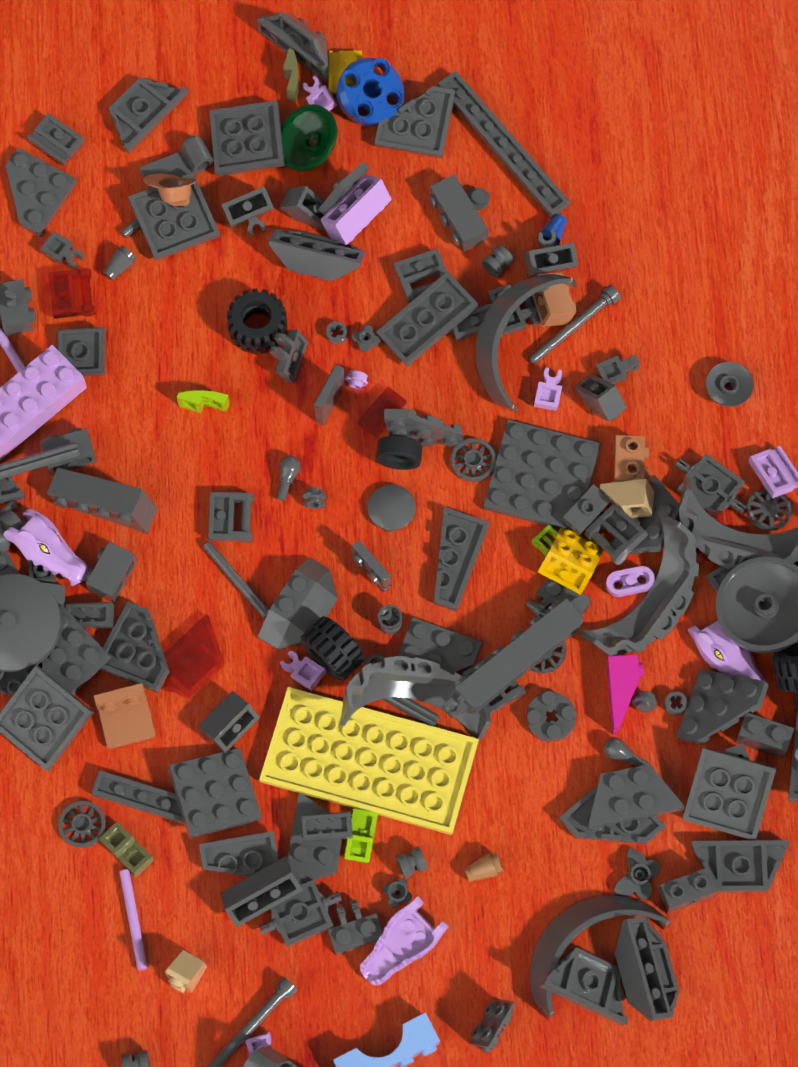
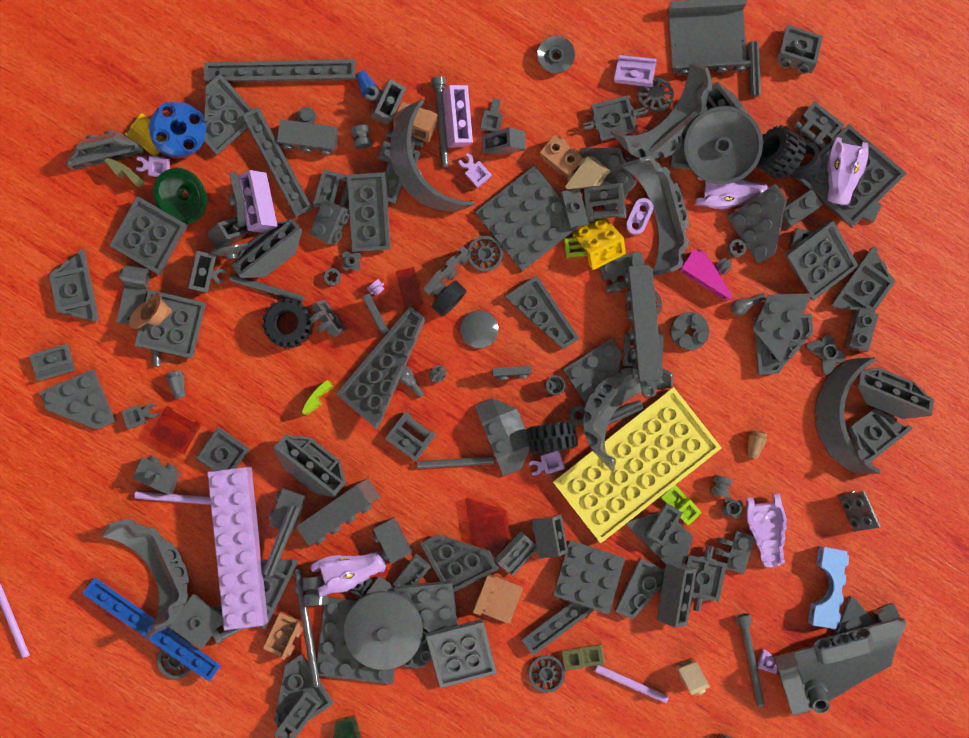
camera: 55 degrees left, 15 degrees up
(131, 438) = (311, 464): none -> dark grey wedge
(185, 701) = (516, 553): none -> dark grey plate
(267, 441) = (377, 377): none -> dark grey wing
(277, 280) = (266, 288): none -> dark grey bar
(288, 218) = (230, 251): none -> dark grey dish
(388, 290) = (330, 222): none -> dark grey bracket
(410, 202) = (277, 162): none -> dark grey tile
(589, 333) = (457, 116): none -> lavender brick

